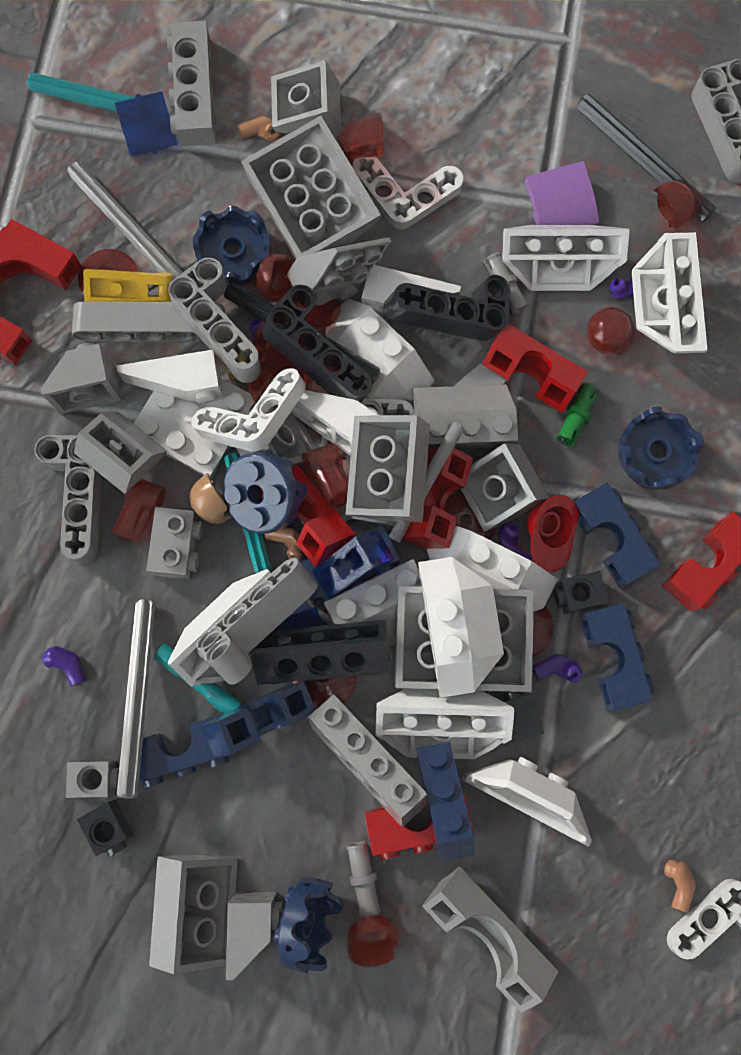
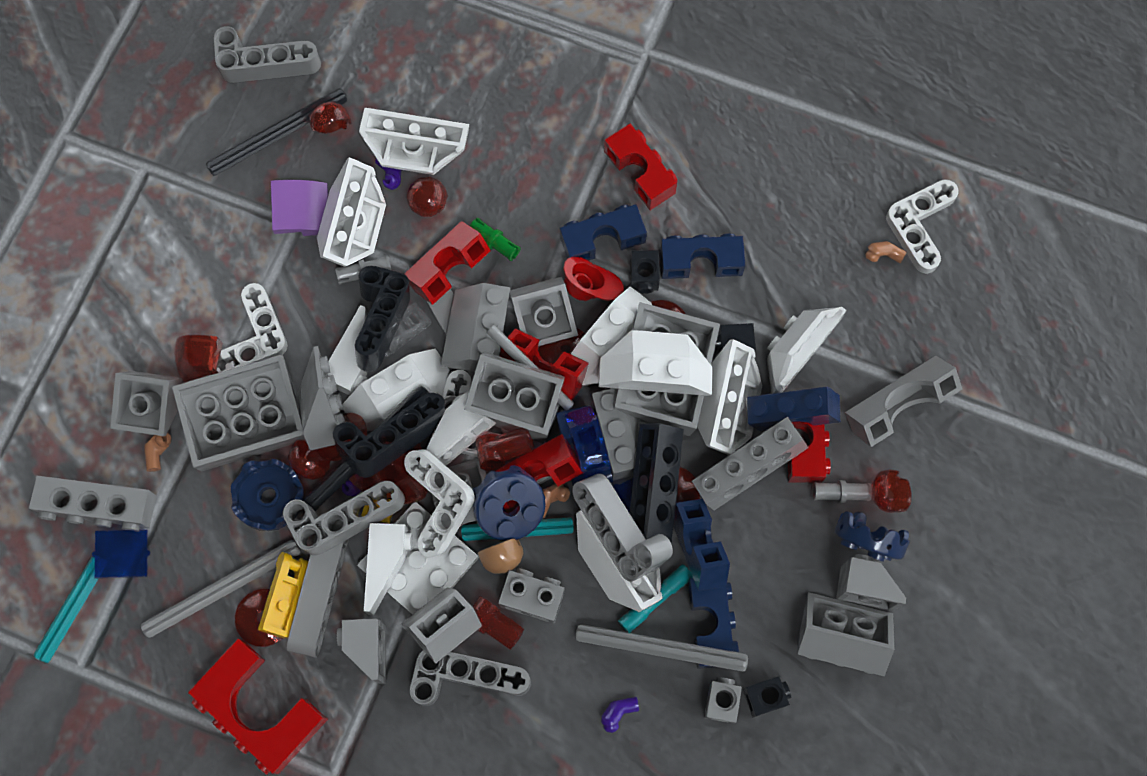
camera: 75 degrees left, 5 degrees down
(509, 538) = (586, 318): dark purple arm -> none
(560, 666) = (701, 300): dark purple arm -> none
(677, 438) = (539, 166): dark blue plate -> none

